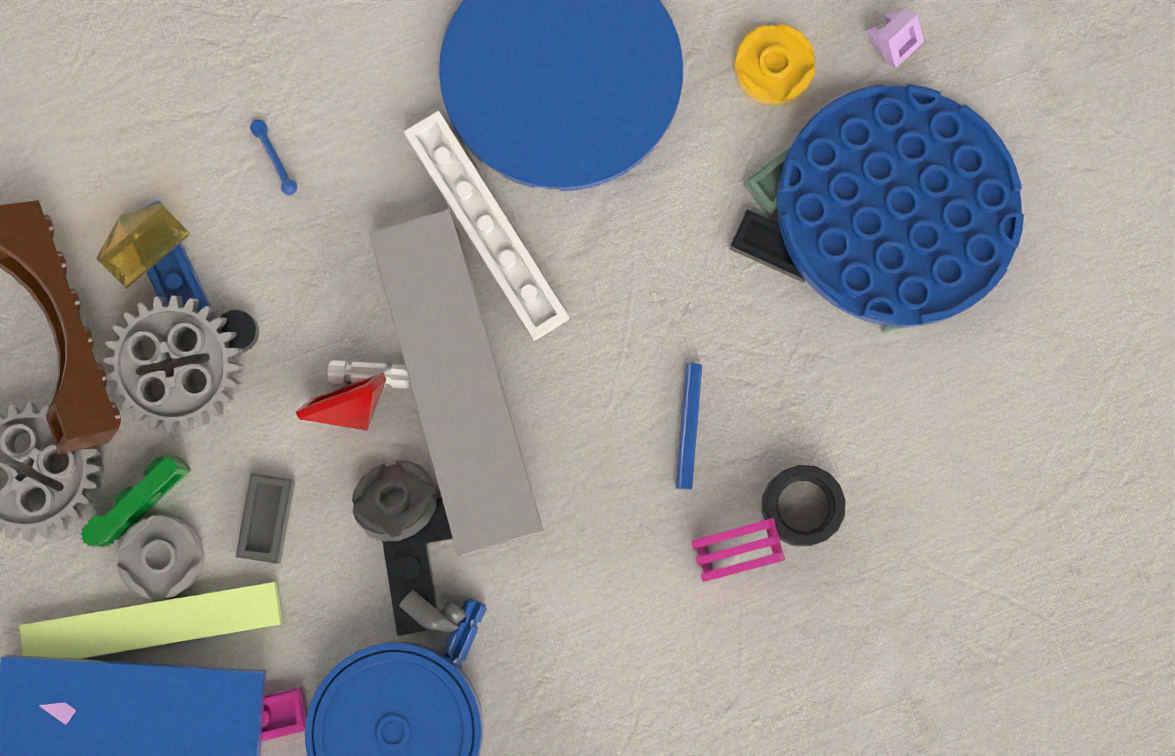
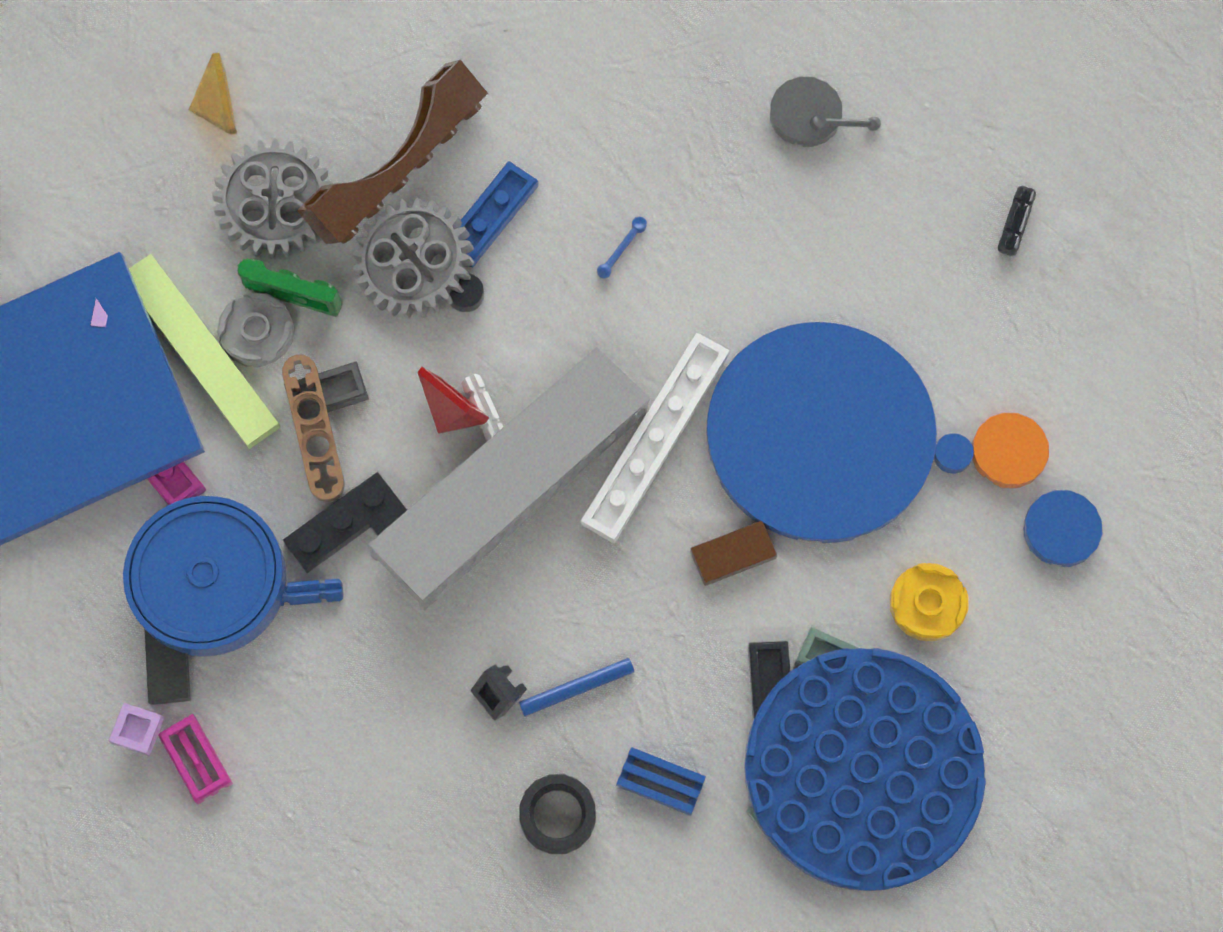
camera: 60 degrees right, 10 degrees down
(140, 242) = (495, 183): clear yellow slope -> none
(298, 554) = (313, 428): none -> medium nougat beam
(394, 501) = (389, 479): dark grey tile -> none
(431, 617) = (309, 555): dark grey arm -> none
(636, 214) = (733, 553): none -> reddish brown tile
(659, 503) = (496, 691): none -> black tile
(706, 559) = (473, 757): dark pink tile -> none
(844, 371) = (692, 793): none -> blue tile
(898, 37) = (1011, 692): lavender tile -> none

